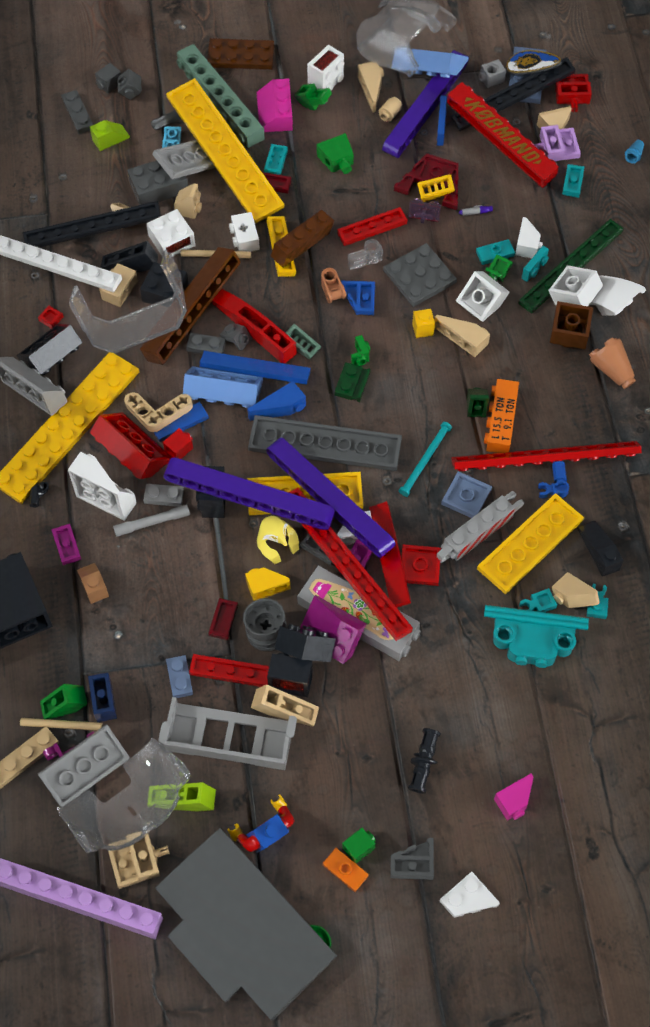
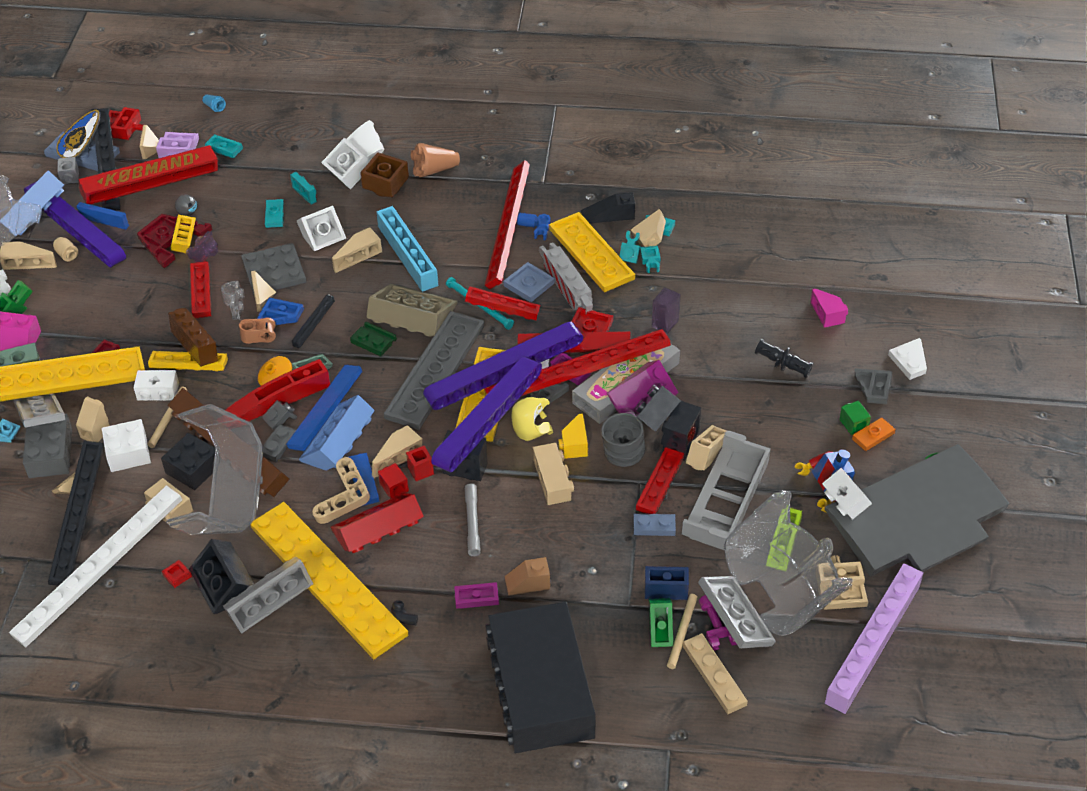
camera: 75 degrees left, 15 degrees down
(97, 488) = (427, 542): white slope -> none
(136, 257) = (142, 475): black slope -> none
(163, 495) = (445, 506): light grey plate -> none
(199, 455) = (419, 463): none -> red brick
(213, 437) = (395, 449): none -> tan slope
(216, 573) = (552, 473): none -> tan brick
(223, 619) = (601, 480): dark red tile -> none
(227, 842) = (853, 502): none -> white brick
(276, 159) = (74, 346): teal plate -> none
(280, 403) = (376, 387): blue slope -> none
(285, 315) = (274, 368): none -> light orange dish
(336, 154) = (98, 297): green torso -> none
(359, 326) = (312, 321): none -> black axle
(362, 348) = (343, 322): green bracket -> none
(379, 271) = (262, 291): none -> tan slope
(398, 400) = (409, 309): none -> dark tan slope
(423, 323) = (333, 272): yellow brick -> none
(423, 477) = (502, 303): none -> red plate
(454, 630) = (666, 310): none -> clear purple piece
(473, 374) = (407, 248): none -> medium azure brick
(477, 402) = (438, 250): dark green slope -> none
(478, 178) = (185, 205): none -> dark grey piece
(478, 209) = (219, 215): piece -> none
(499, 268) = (295, 211): green bracket -> none
(502, 417) = (457, 241): orange brick -> none
(528, 240) = (273, 186): white slope -> none
(534, 635) = (683, 264): teal brick -> none
(540, 578) = (630, 251): none -> teal plate
(578, 258) = (315, 170): dark green tile -> none

